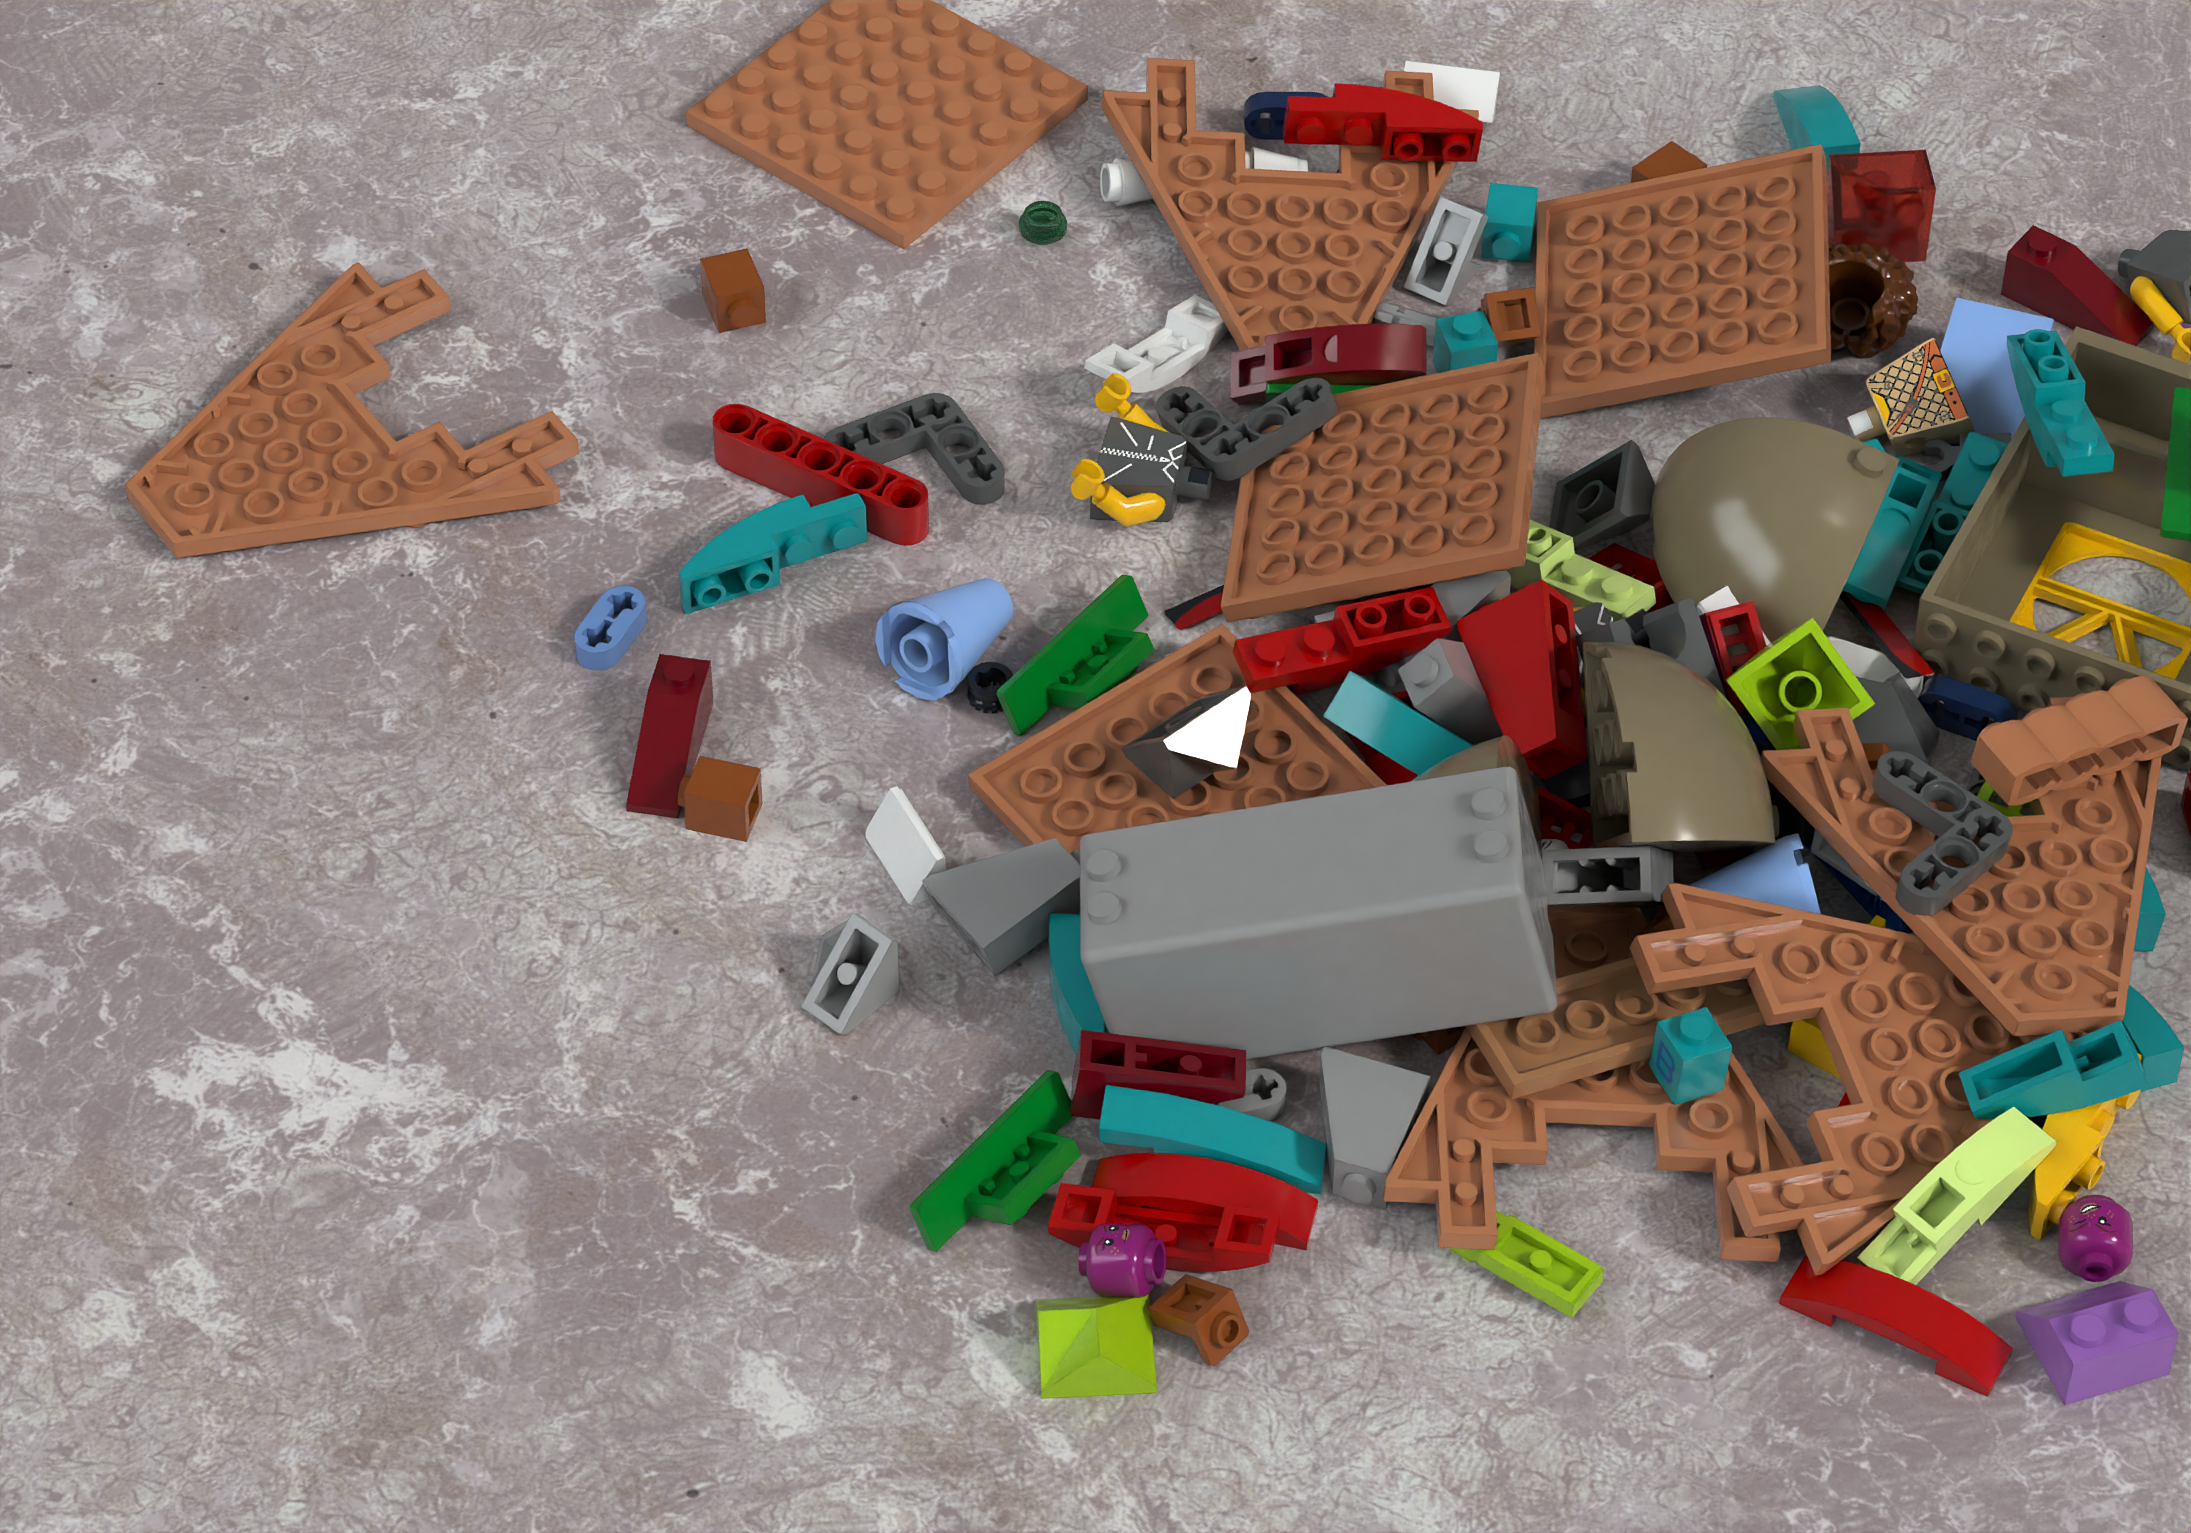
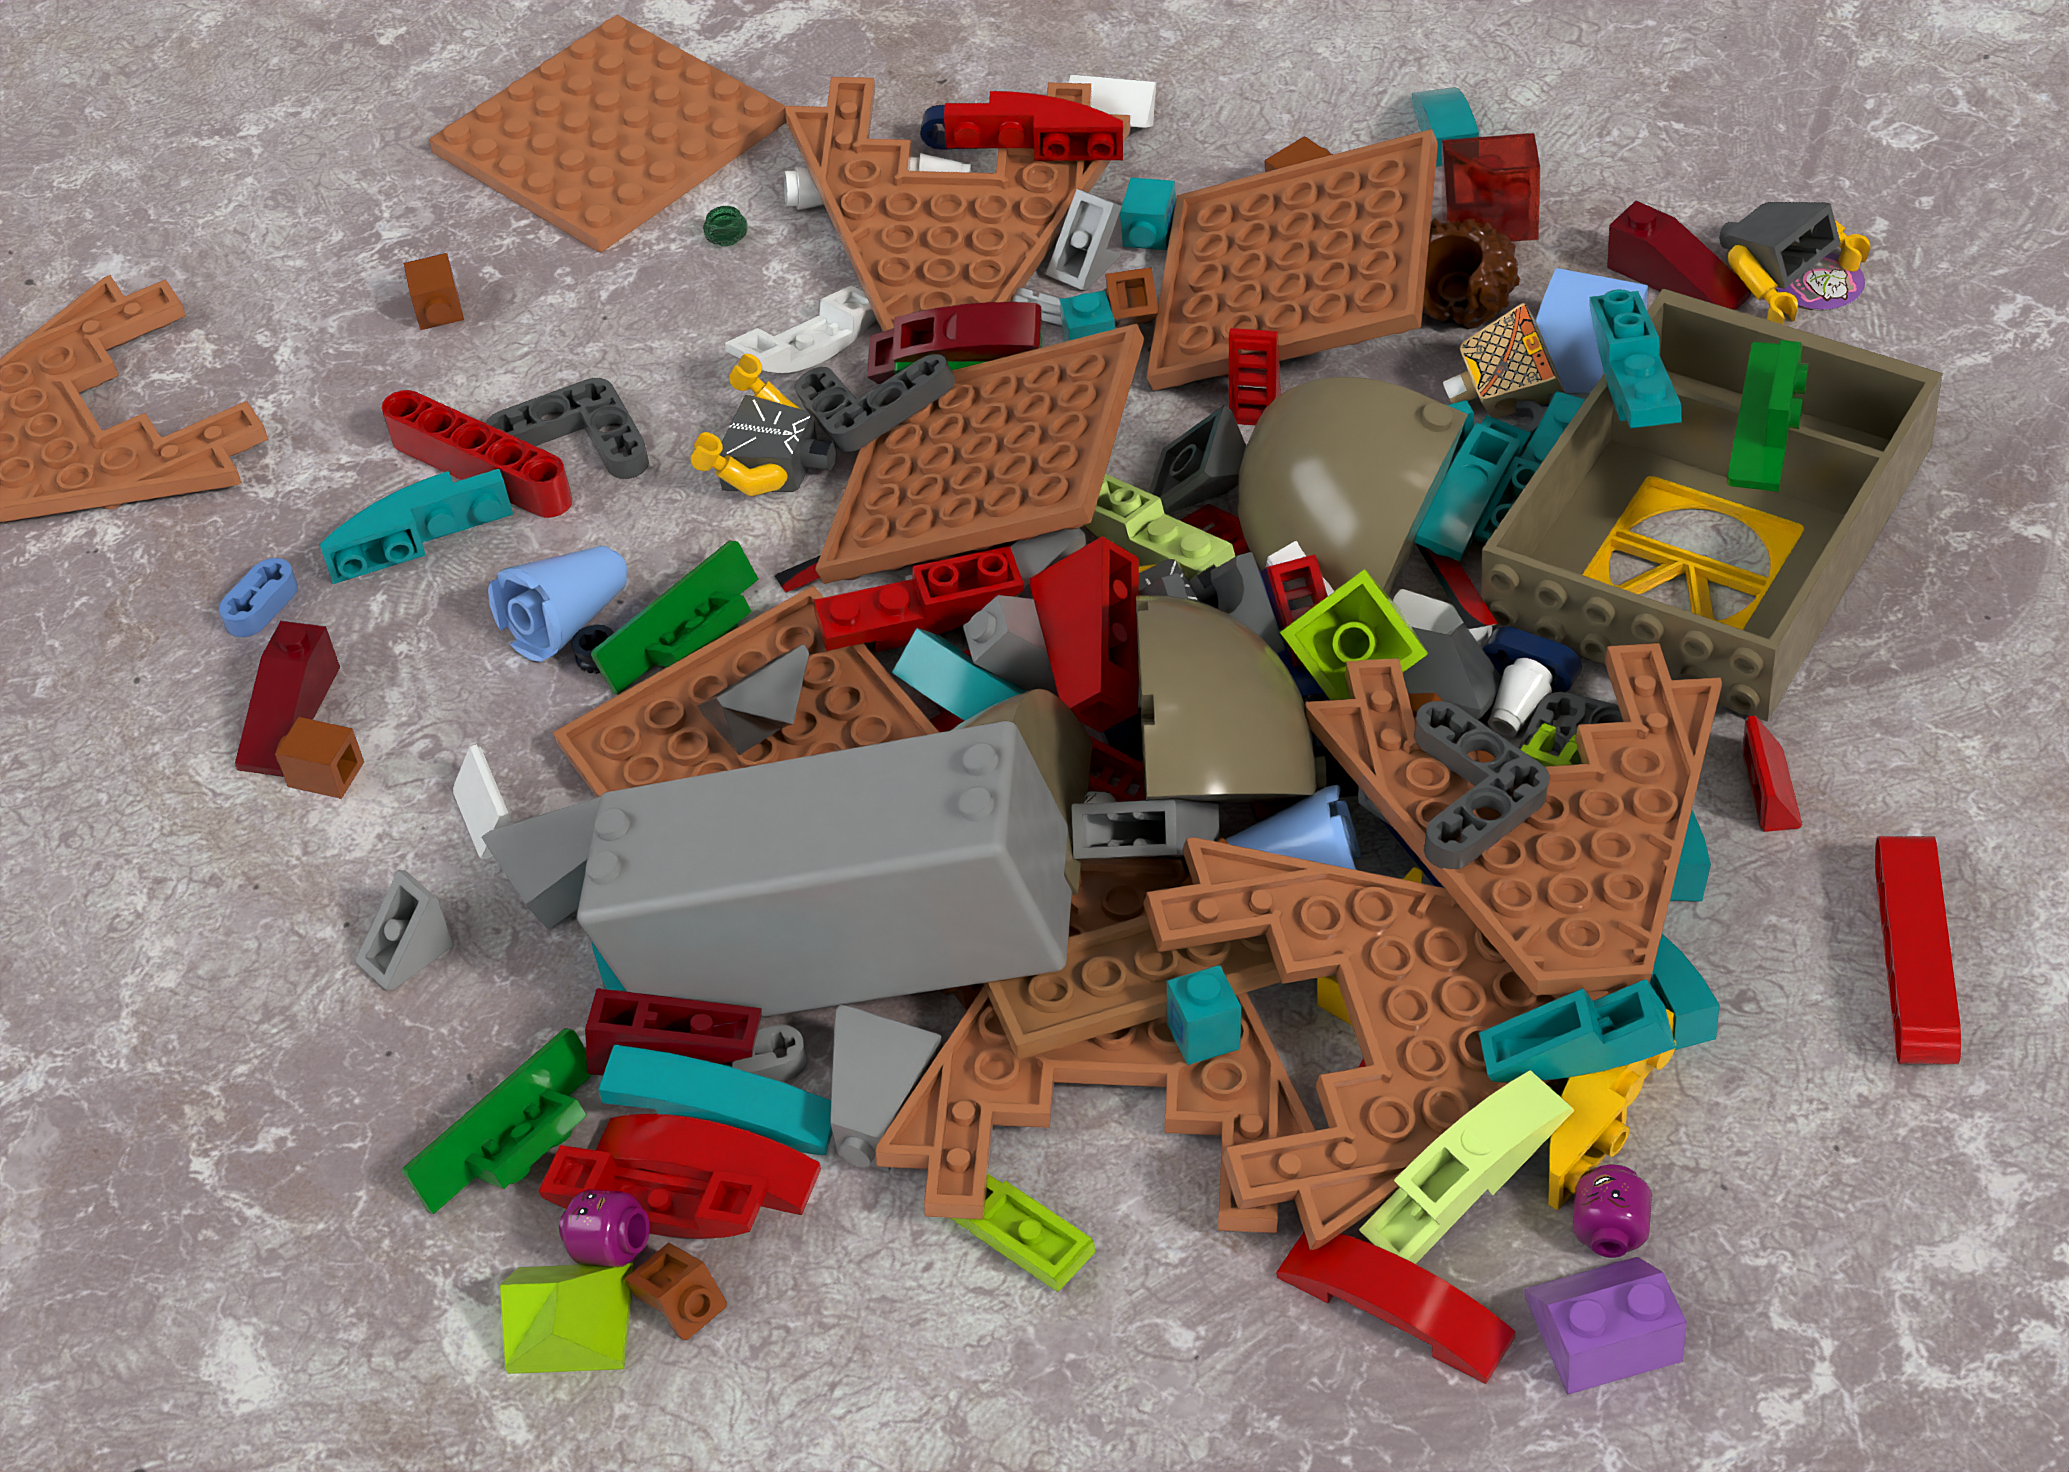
camera: 10 degrees right, 0 degrees up
(1652, 436) = (1250, 402): none -> red slope
(1957, 743) = (1519, 695): none -> white cone
(2073, 742) = (1622, 690): nougat brick -> none

